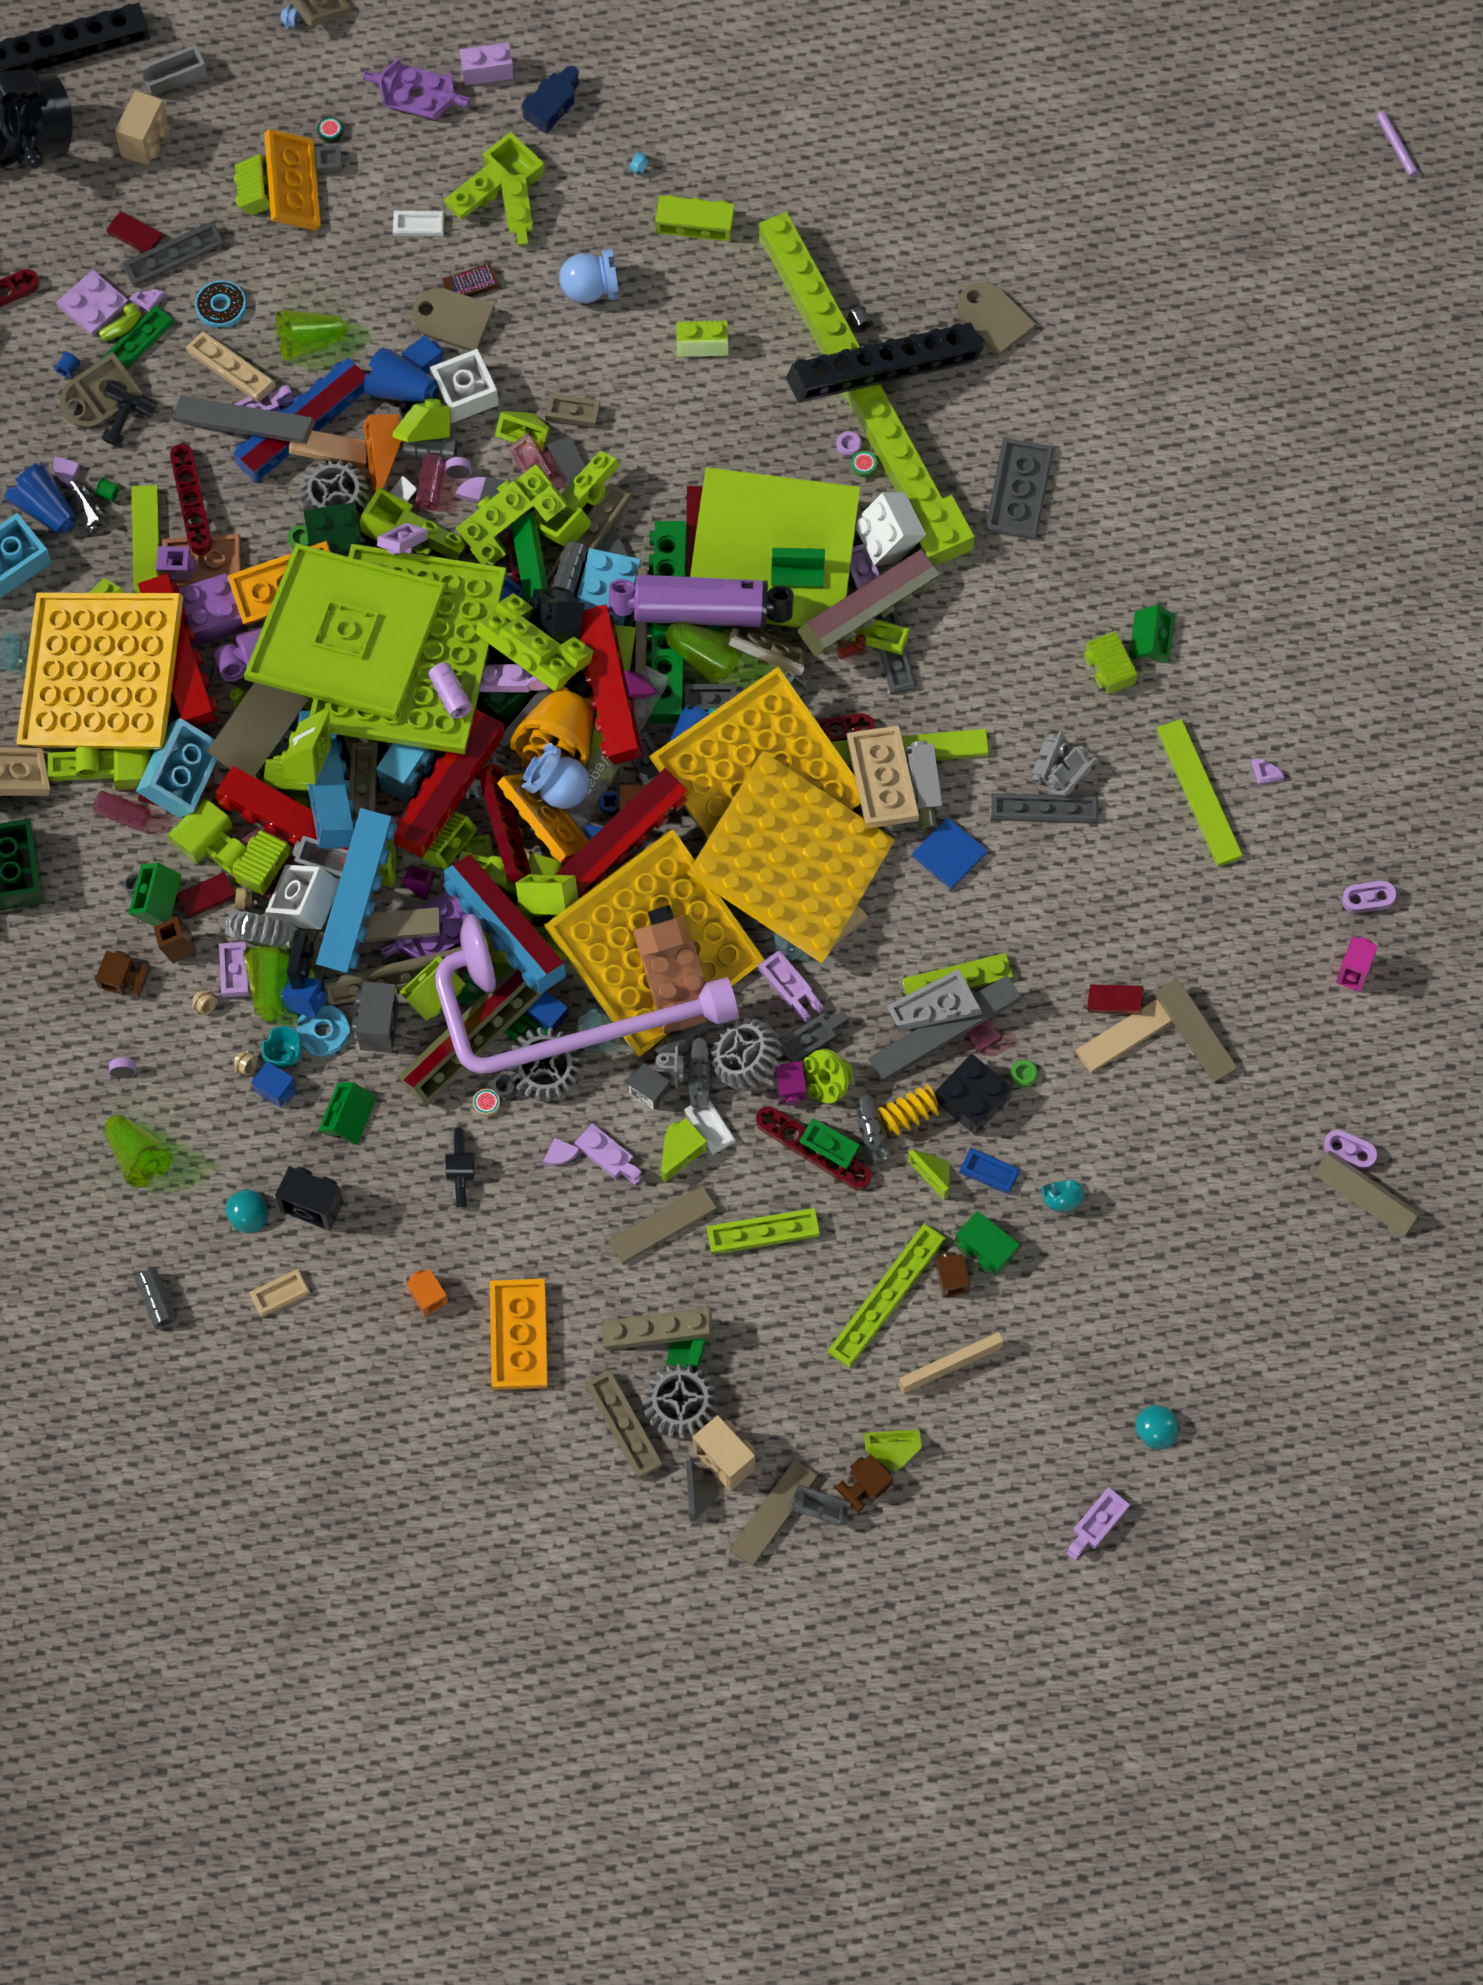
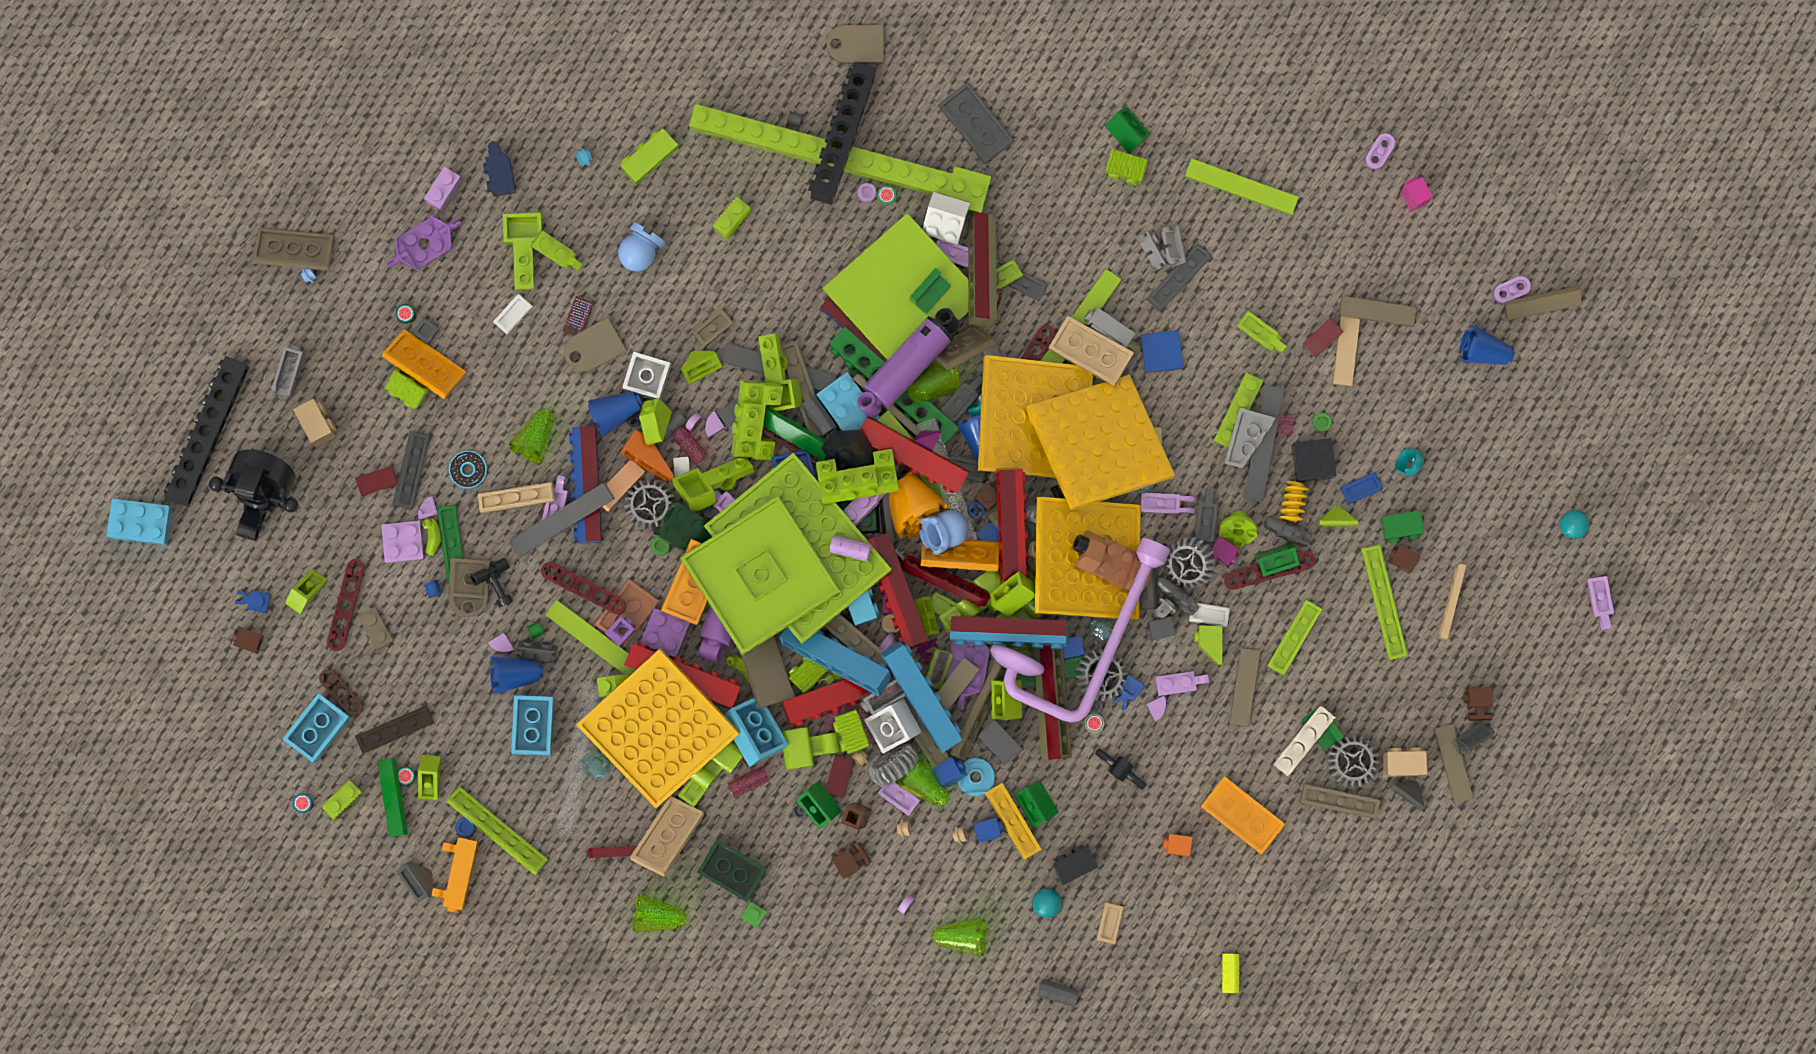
camera: 55 degrees left, 15 degrees up
(282, 1040) = (975, 814): teal hair -> none
(298, 963) = (925, 752): black plate -> none
(306, 1103) = (1013, 821): none -> yellow plate
(308, 749) = (817, 655): lime slope -> none
(330, 1461) = (1230, 973): none -> neon yellow axle
(402, 538) = (724, 494): lavender plate -> none
(407, 896) = (938, 667): none -> tile
(424, 354) = (605, 383): blue brick -> none
(528, 453) = (725, 377): clear pink plate -> none
(556, 1109) = (1131, 690): none -> blue plate
(893, 1447) = (1470, 671): lime slope -> none
(1062, 934) = (1261, 332): none -> lime hinge
(1259, 1171) = (1484, 348): none -> blue cone
(1266, 772) = (1260, 140): lavender tile -> none

